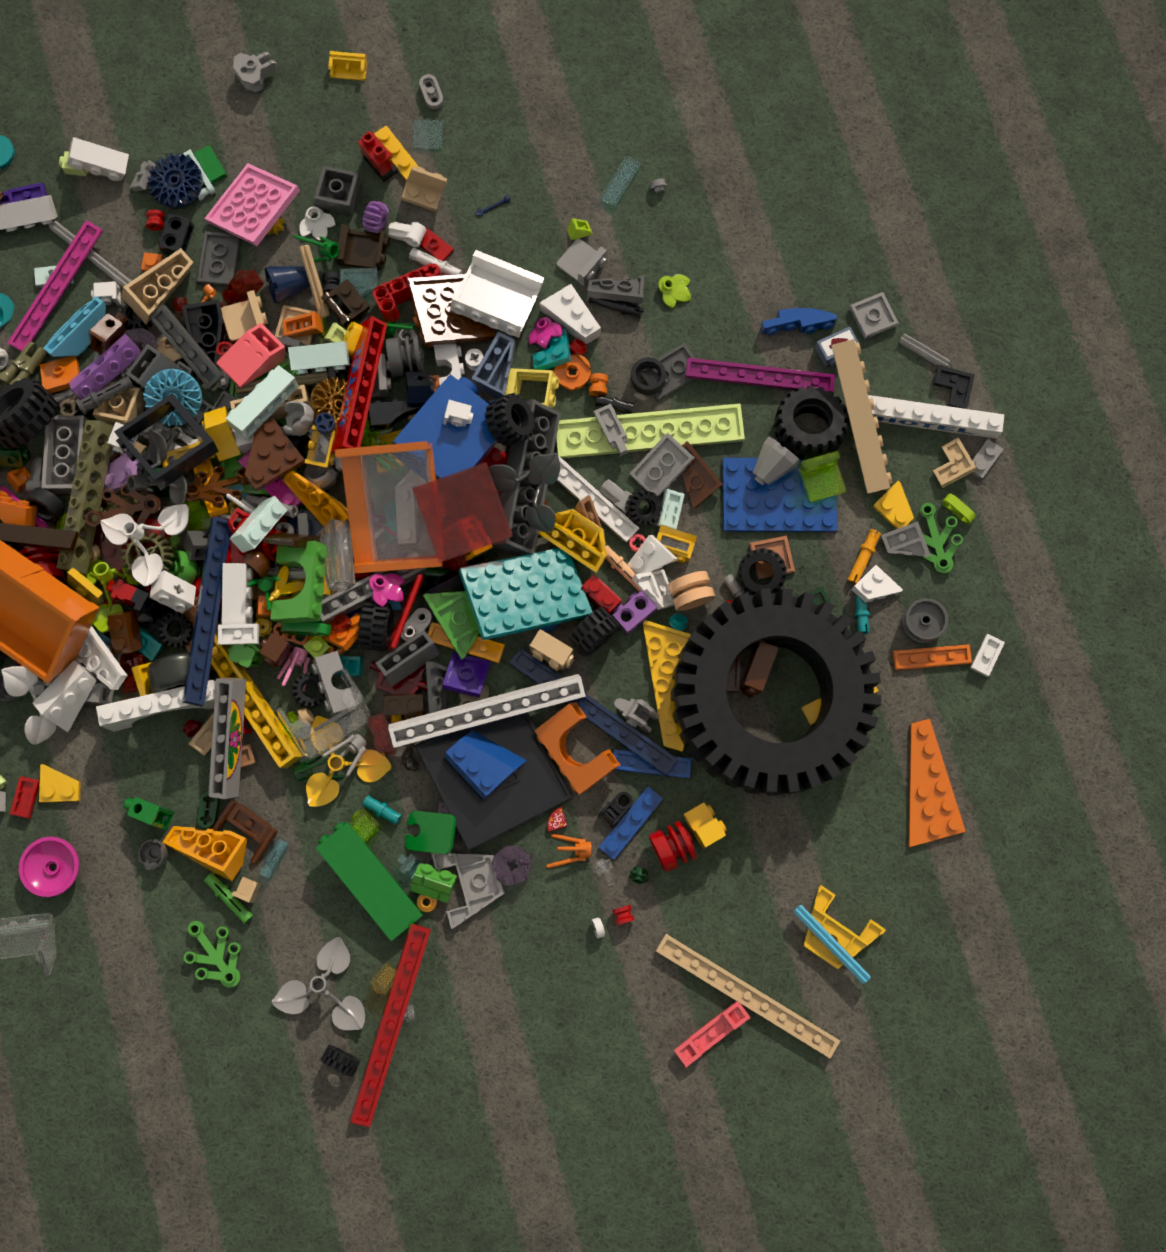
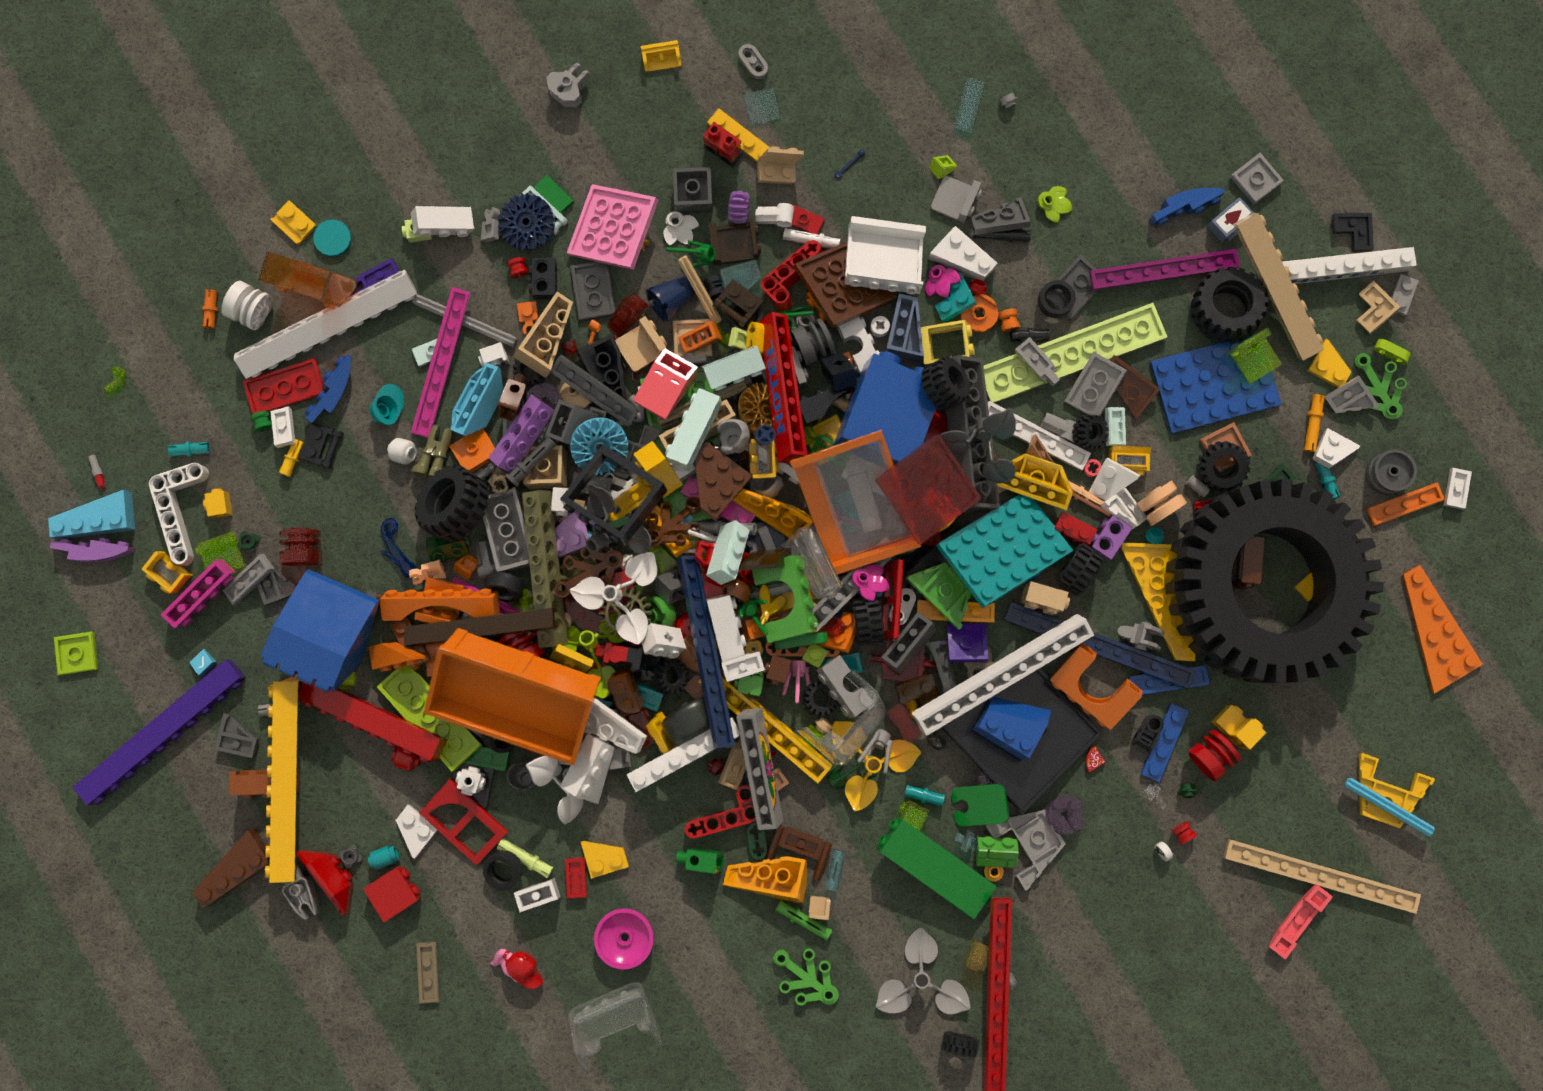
camera: 15 degrees left, 5 degrees up
(155, 848) = (718, 891): dark grey hair -> none
(180, 777) = (721, 817): none -> red beam
(221, 346) = (636, 383): red plate -> none
(457, 414) = (895, 392): white brick -> none
(582, 850) = (1126, 781): orange plant -> none
(773, 462) = (1206, 354): light grey cone -> none
(923, 351) = (1315, 202): light grey axle -> none

